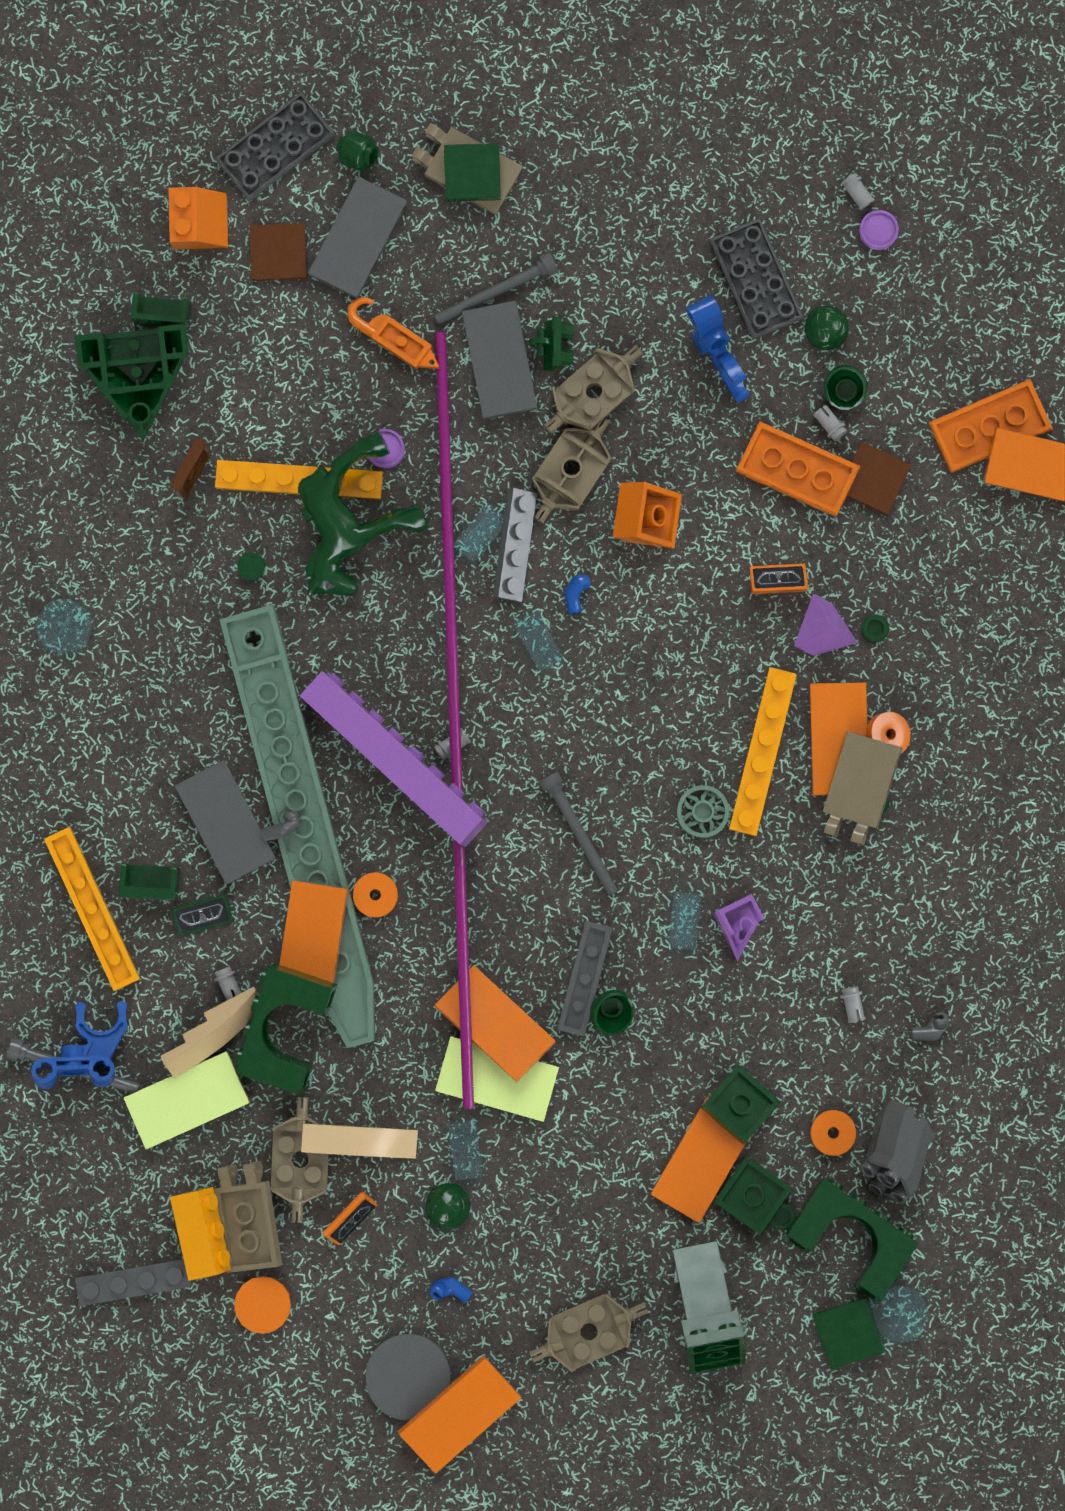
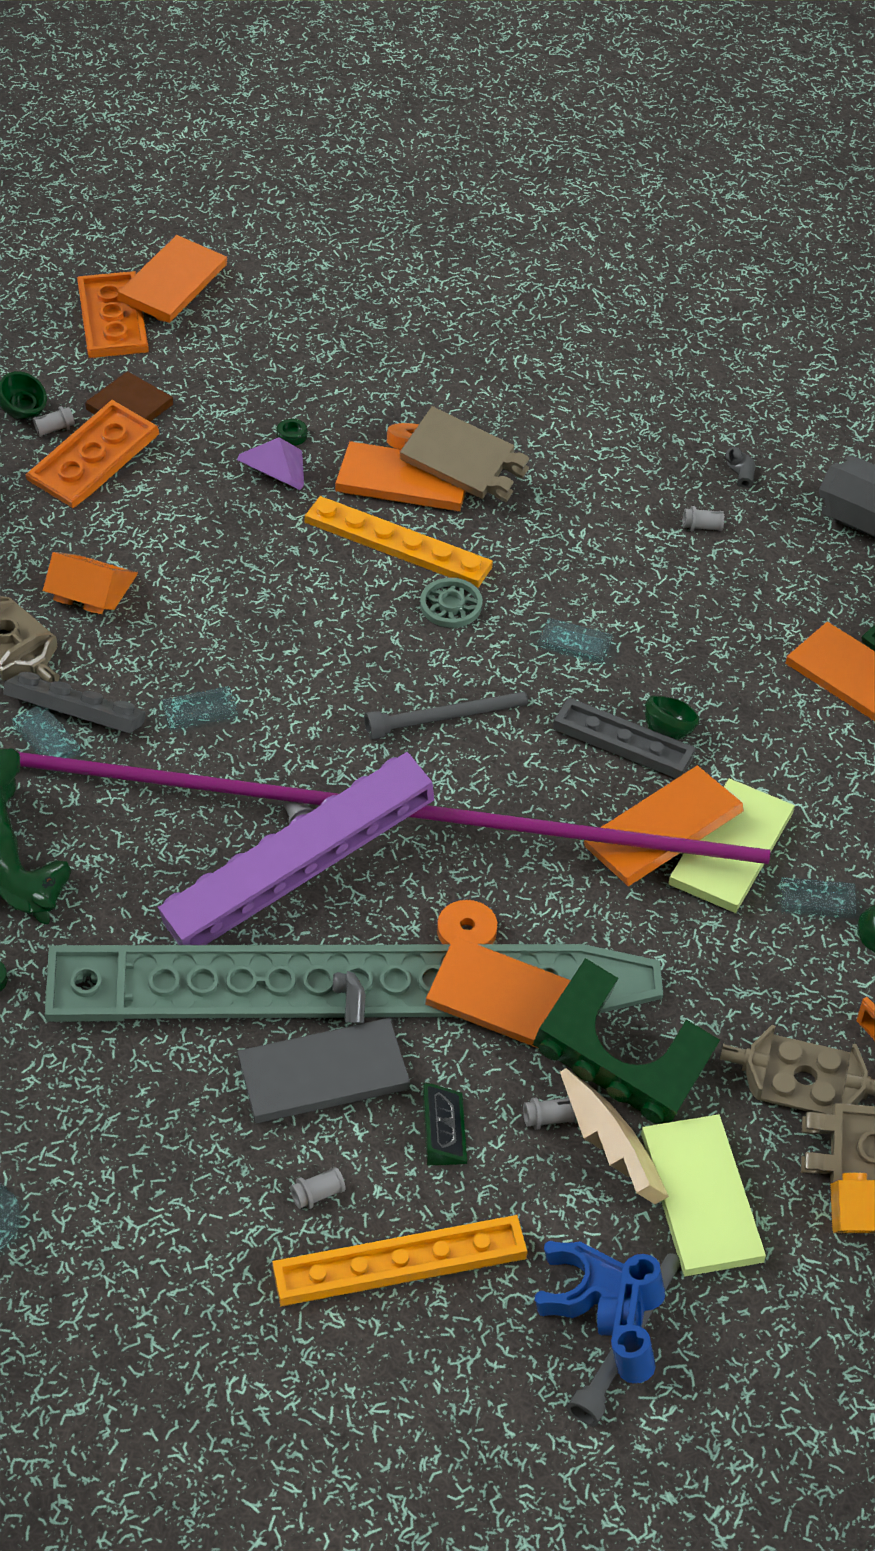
camera: 85 degrees left, 35 degrees down
(133, 841) = (317, 1188): none -> light grey pin
(149, 882) = (382, 1176): dark green panel -> none
(359, 1141) = (790, 1002): tan slope -> none
(573, 590) = (152, 664): blue arm -> none
(739, 922) = (591, 597): medium lavender slope -> none
(740, 1104) = (802, 627): dark green tile -> none
(778, 578) = (208, 493): slope -> none
(845, 1128) = (856, 557): orange piece -> none

